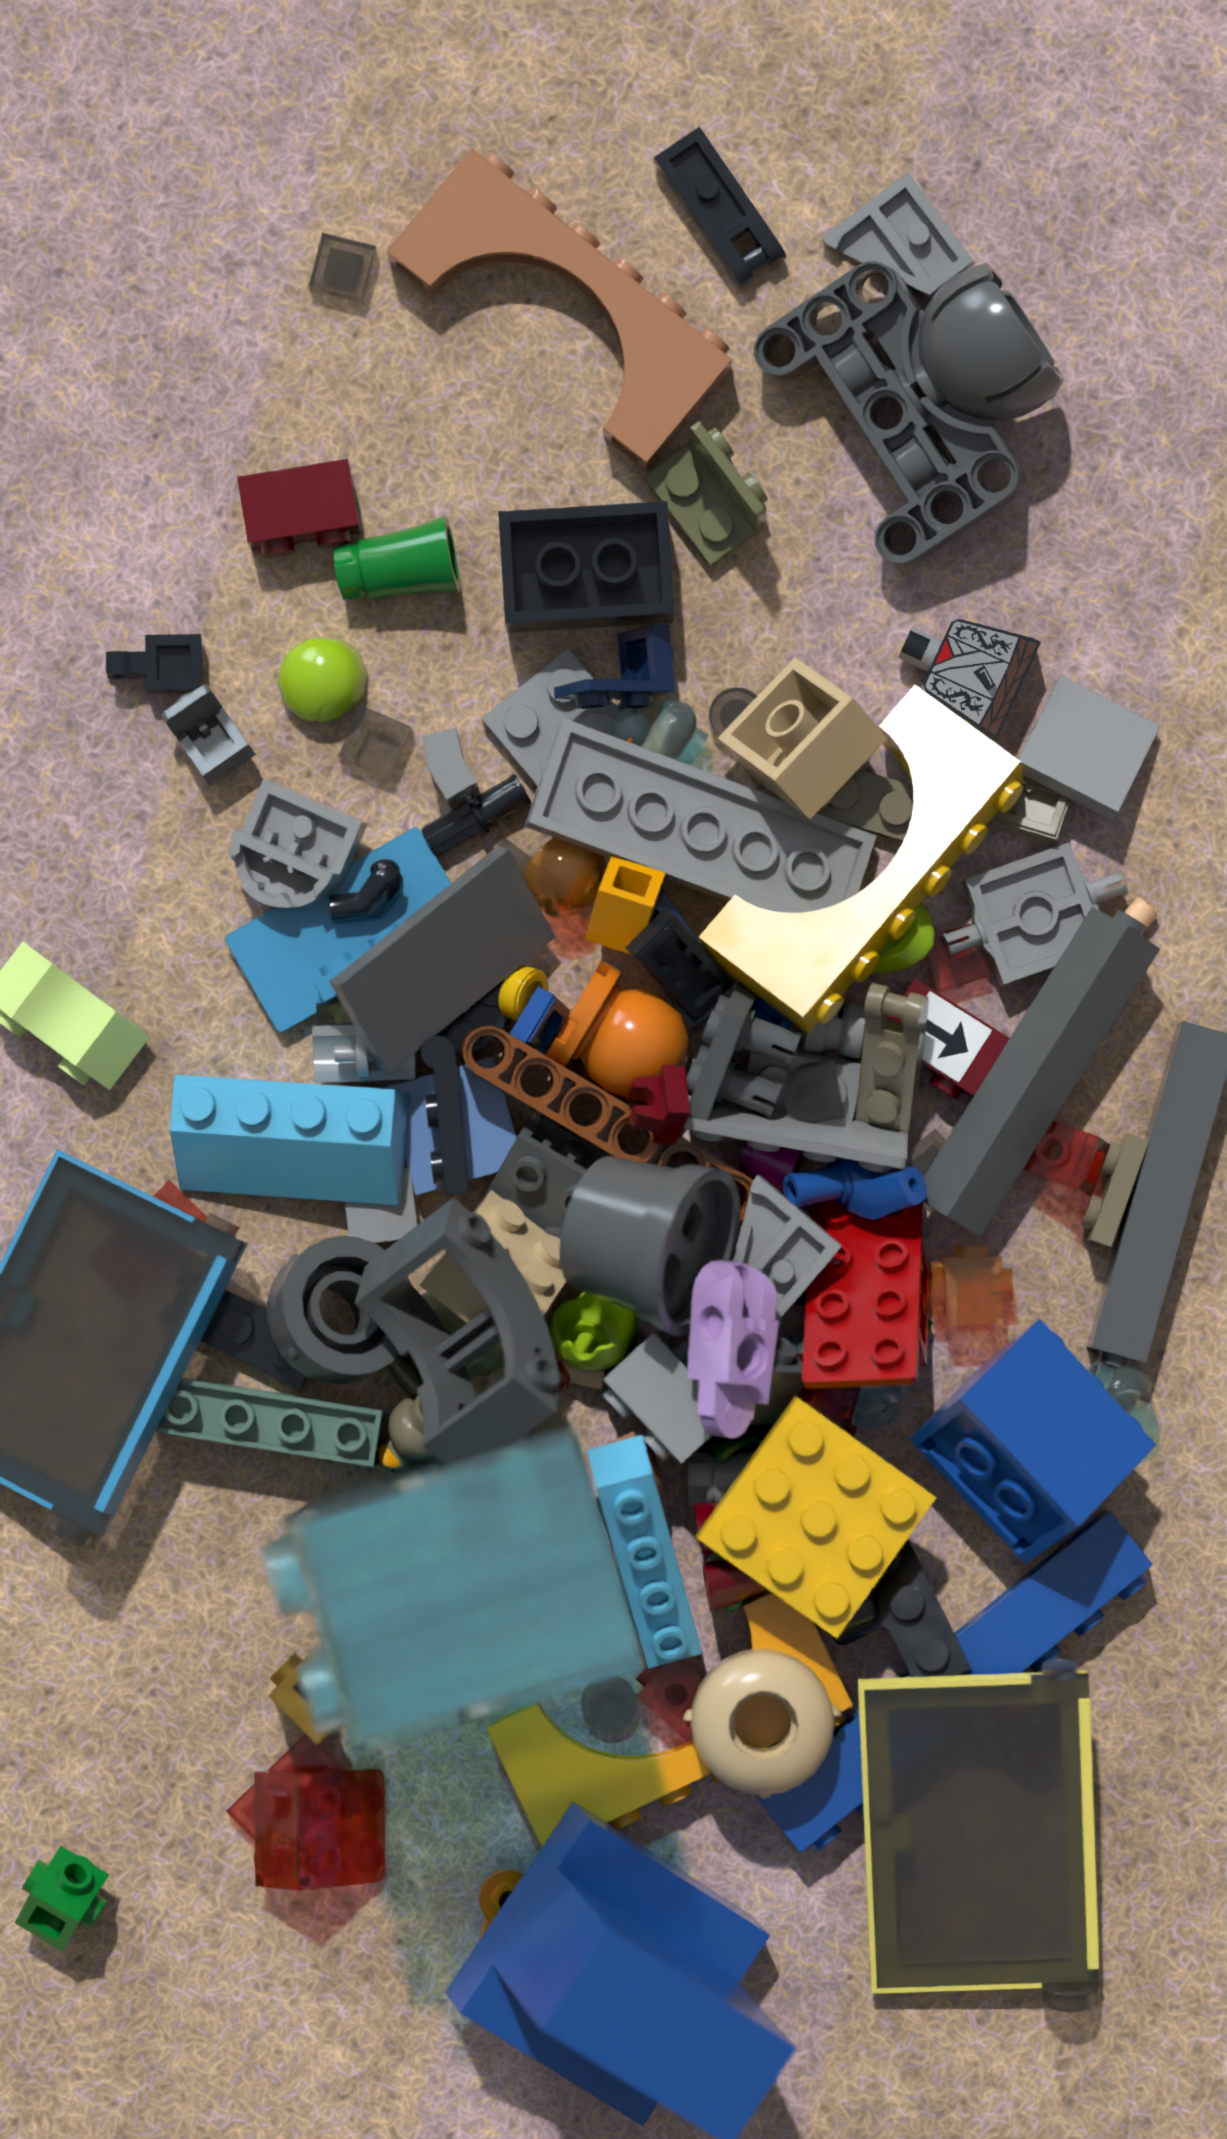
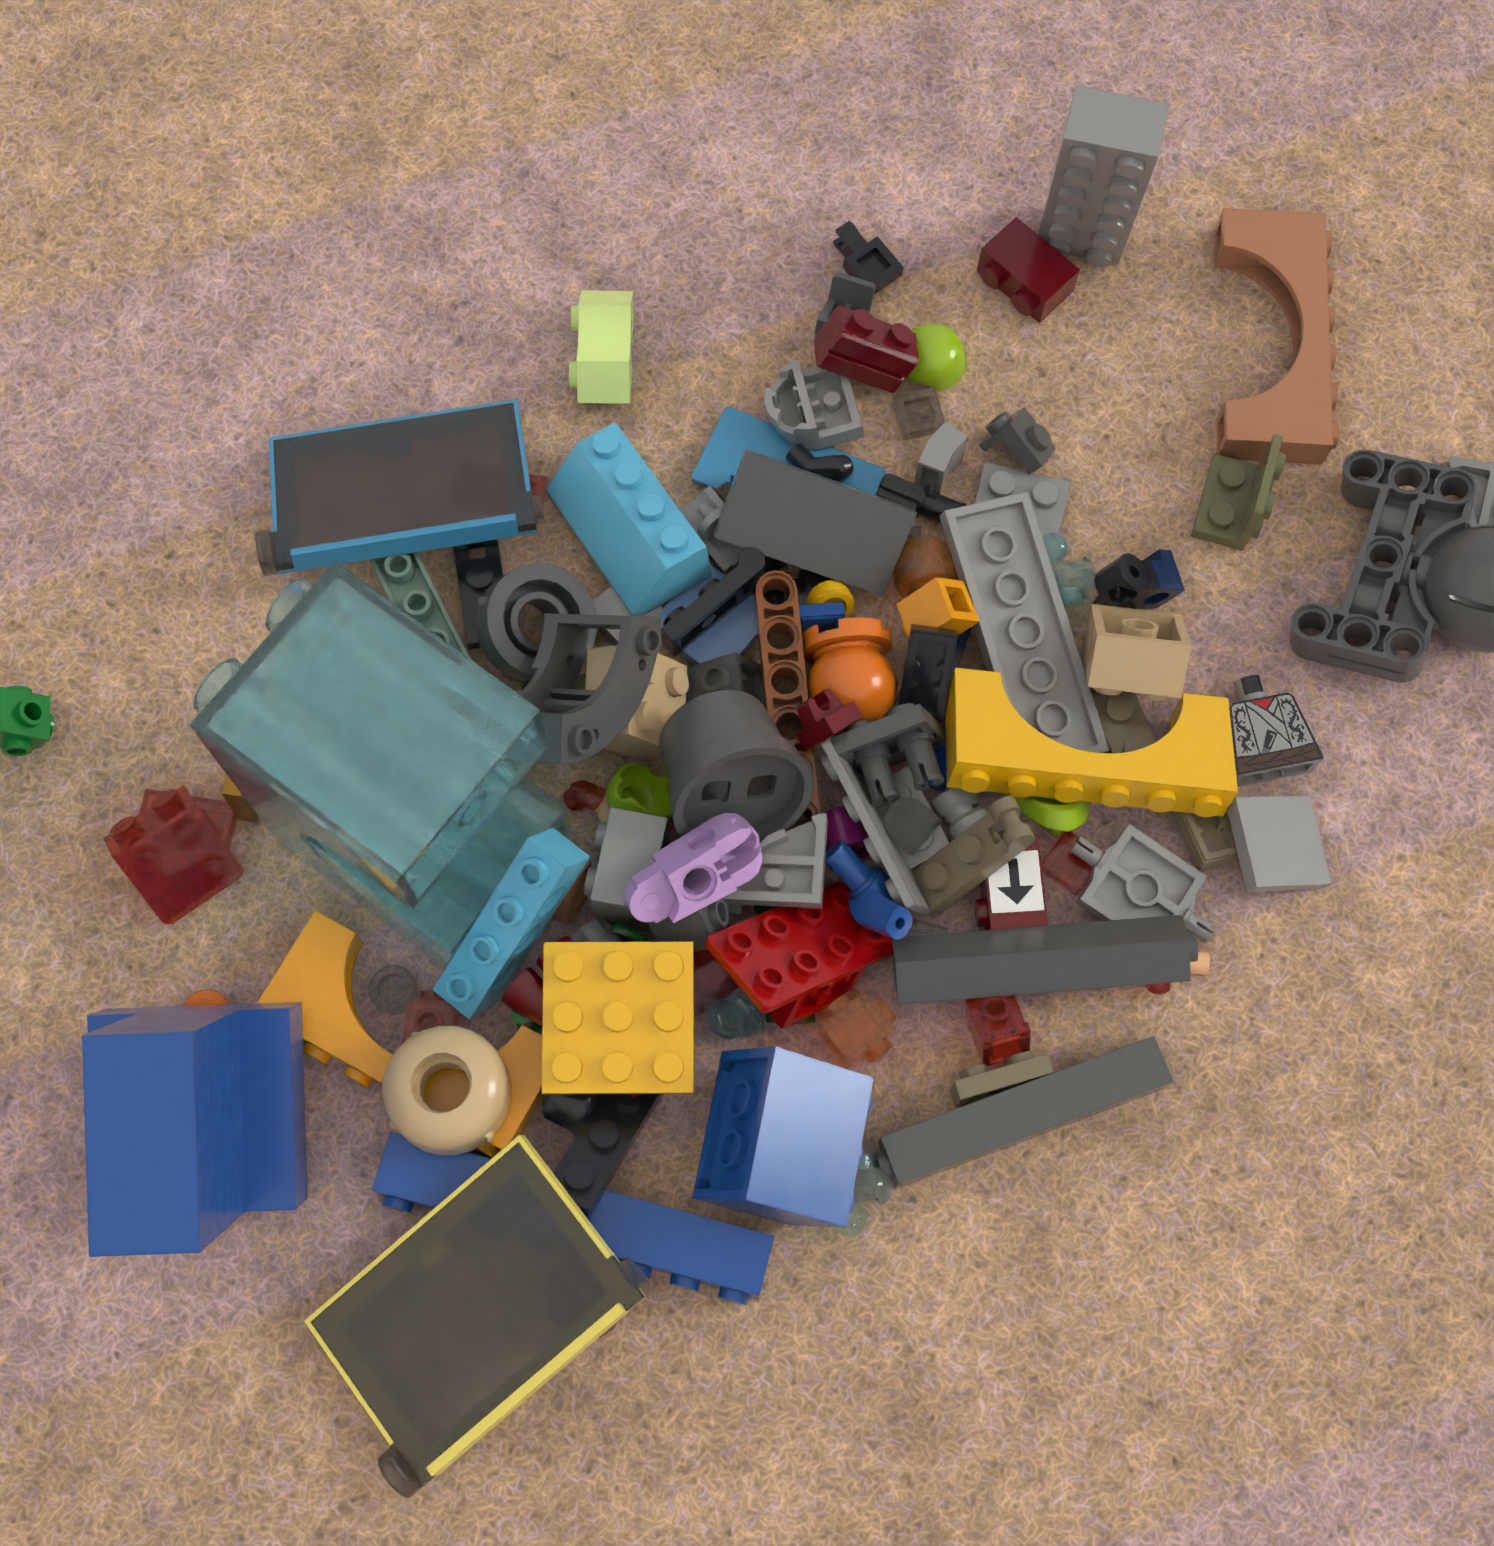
camera: 50 degrees right, 15 degrees down
(278, 754) = (866, 348): none -> dark red brick
(311, 390) = (1101, 173): none -> light grey brick
(342, 267) = (1188, 205): clear smoke tile -> none
(399, 563) = (1042, 348): green plant -> none
(486, 664) = (1023, 437): none -> dark grey bracket
(586, 567) = (1131, 451): black brick -> none
(645, 672) = (1091, 537): dark blue bracket -> none
(718, 205) = (1414, 383): black plate -> none
(734, 658) = (1140, 582): none -> black leg

